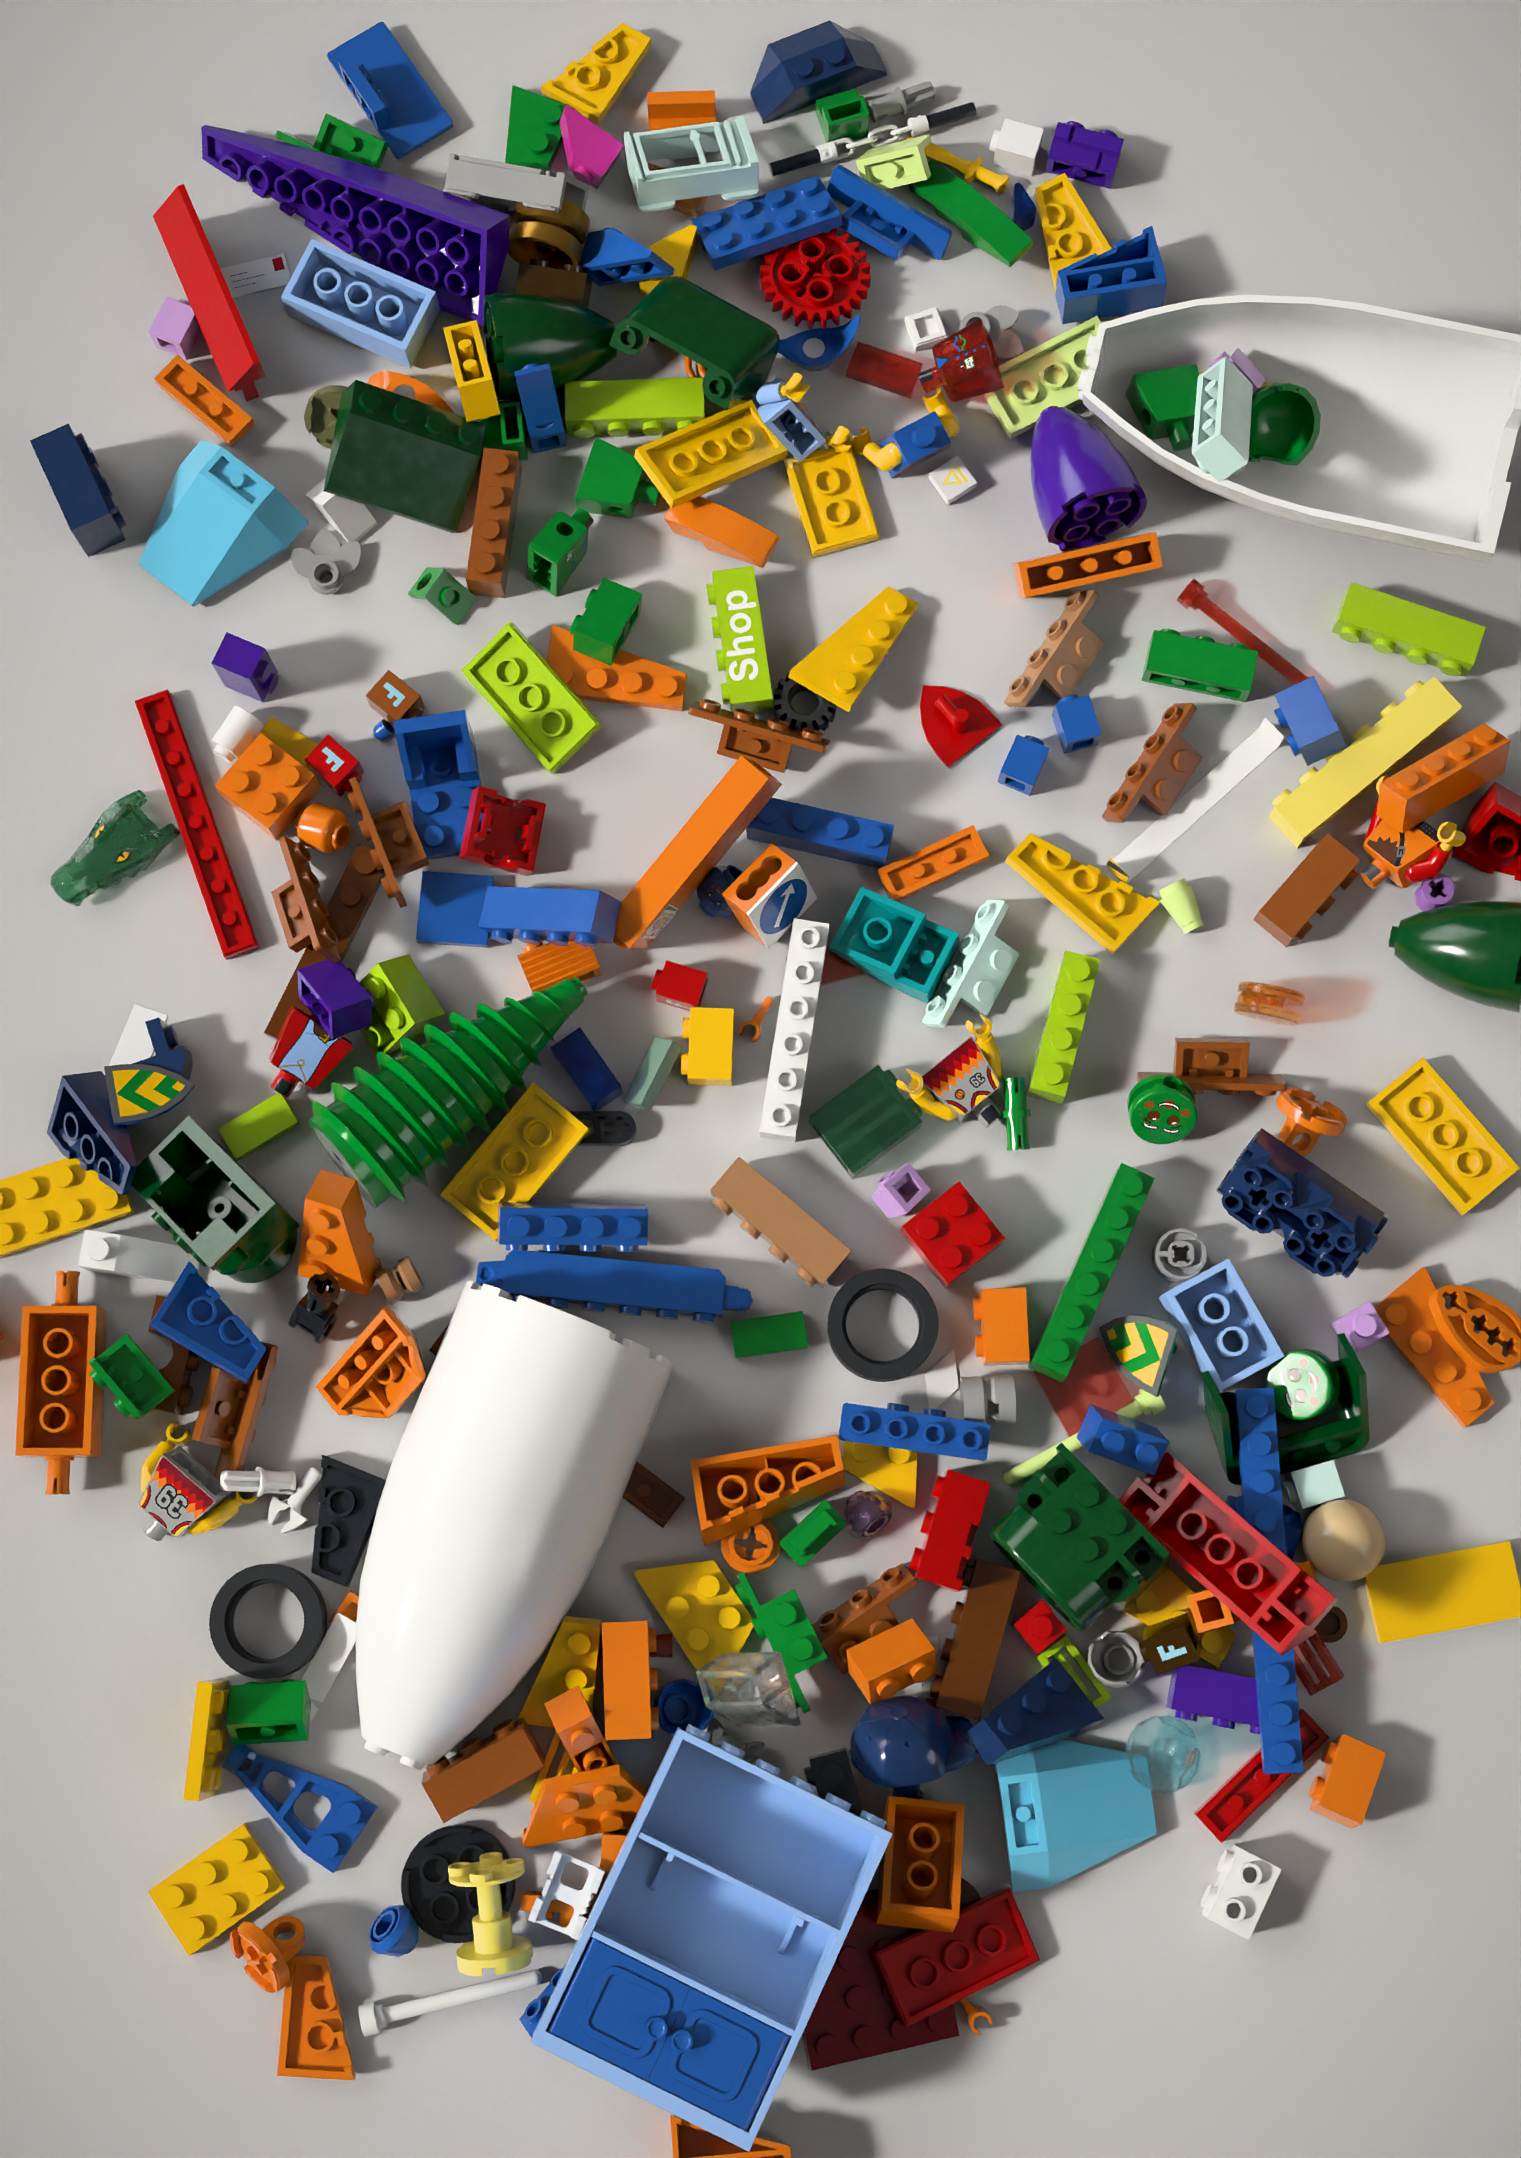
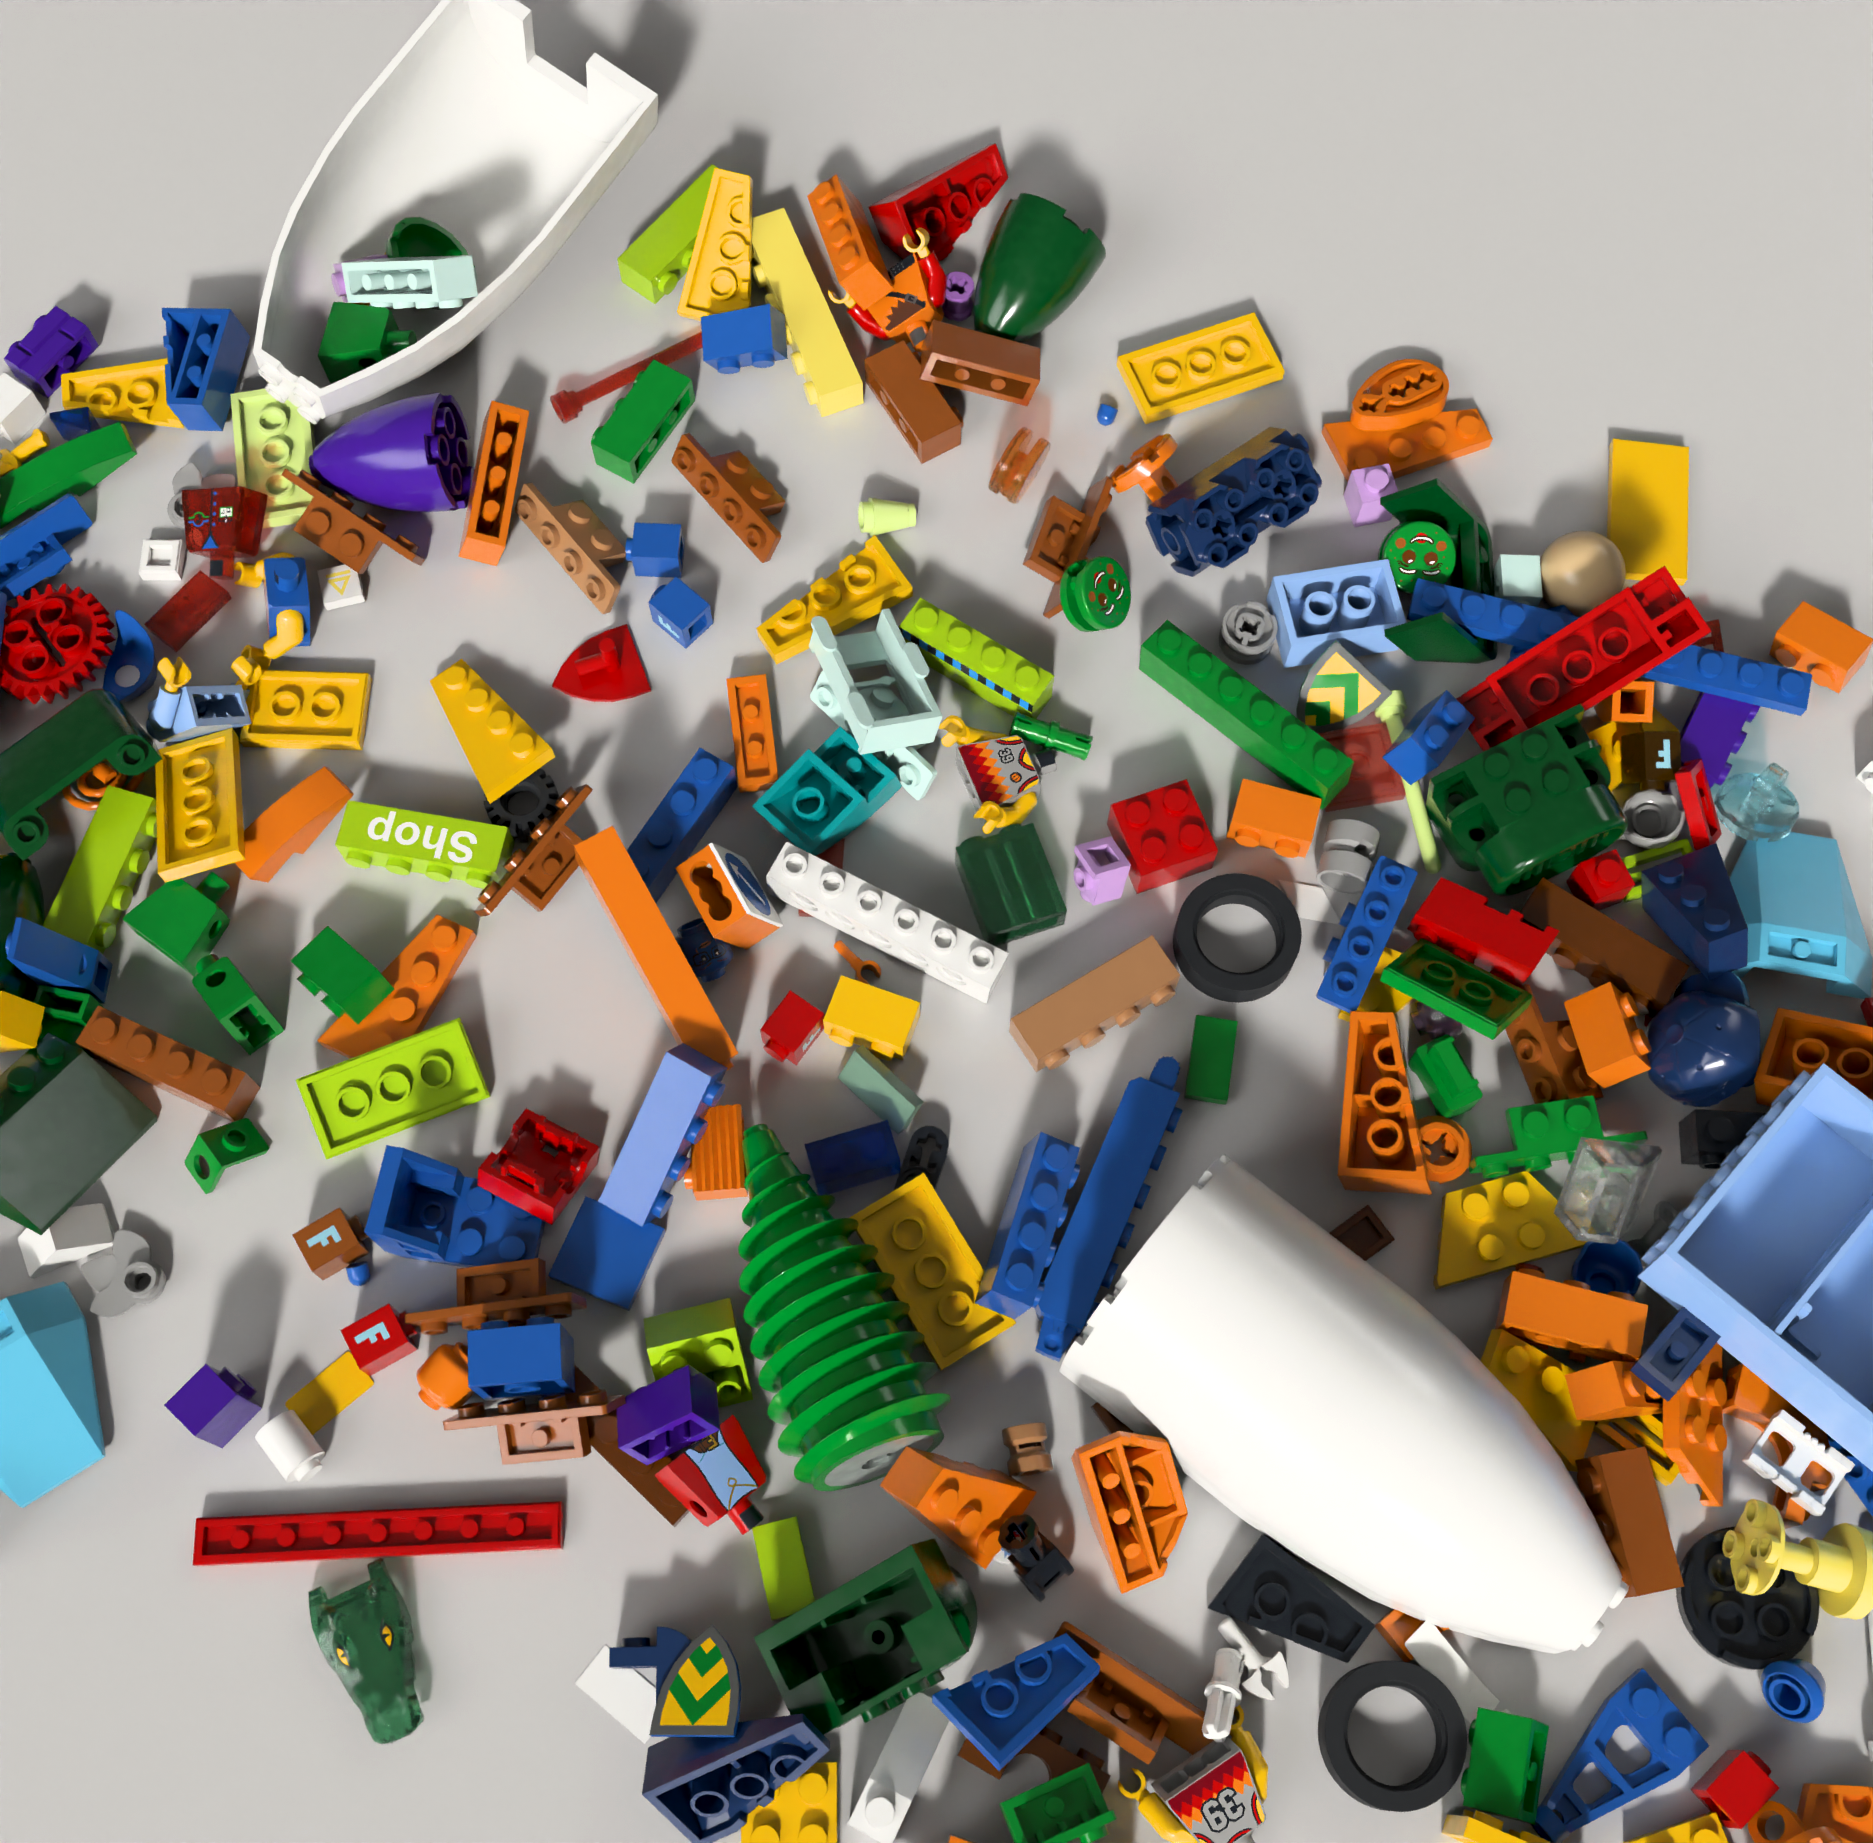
camera: 75 degrees left, 10 degrees down
(268, 786) = (371, 1426): orange brick -> none
(306, 1899) = (1736, 1787): none -> red brick
(339, 875) = (520, 1359): none -> blue brick
(615, 1767) = (1675, 1354): none -> dark blue plate
(887, 1519) = (1456, 988): none -> green tile
(998, 461) = (341, 531): none -> dark orange bracket
(1035, 924) = (907, 672): none -> light aqua piece
(1140, 1696) = (1698, 804): none -> red tile
(1196, 802) = (781, 472): white sticker -> none
(1251, 1787) = (1807, 750): red tile -> none
(1362, 935) = (980, 363): none -> dark orange brick
(1364, 1066) = (1106, 414): none -> blue piece
(1383, 672) = (722, 252): none -> yellow wing

